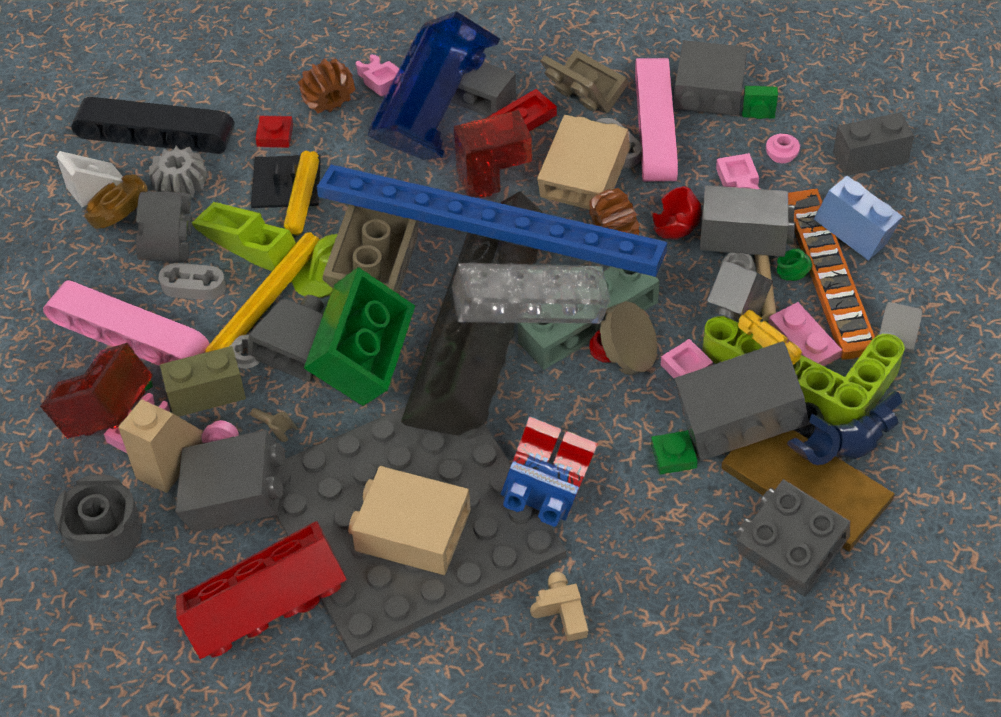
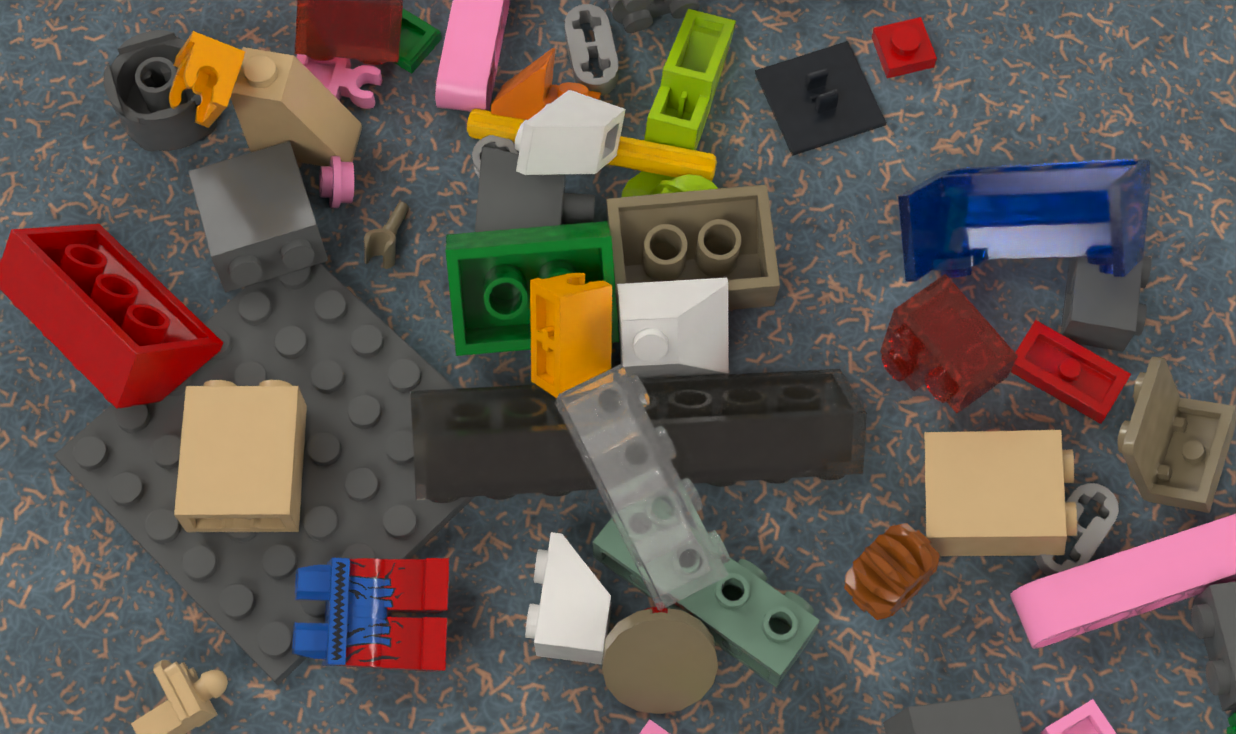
camera: 70 degrees right, 15 degrees up
(131, 454) = (208, 70): none -> light orange hinge
(203, 381) = (415, 125): olive brick -> none
(214, 309) = (533, 89): none -> orange slope
(265, 284) = (569, 136): none -> white slope
(301, 192) = (794, 123): yellow axle -> none
(326, 85) = (1001, 79): dark orange gear -> none
(377, 75) = (1070, 140): bright pink plate -> none
(406, 318) = (569, 331): none -> light orange hinge
(419, 276) = (674, 328): none -> white slope
(493, 220) = (769, 403): blue plate -> none
(574, 378) = (572, 606): none -> white slope
(679, 215) = (940, 669): red hair -> none

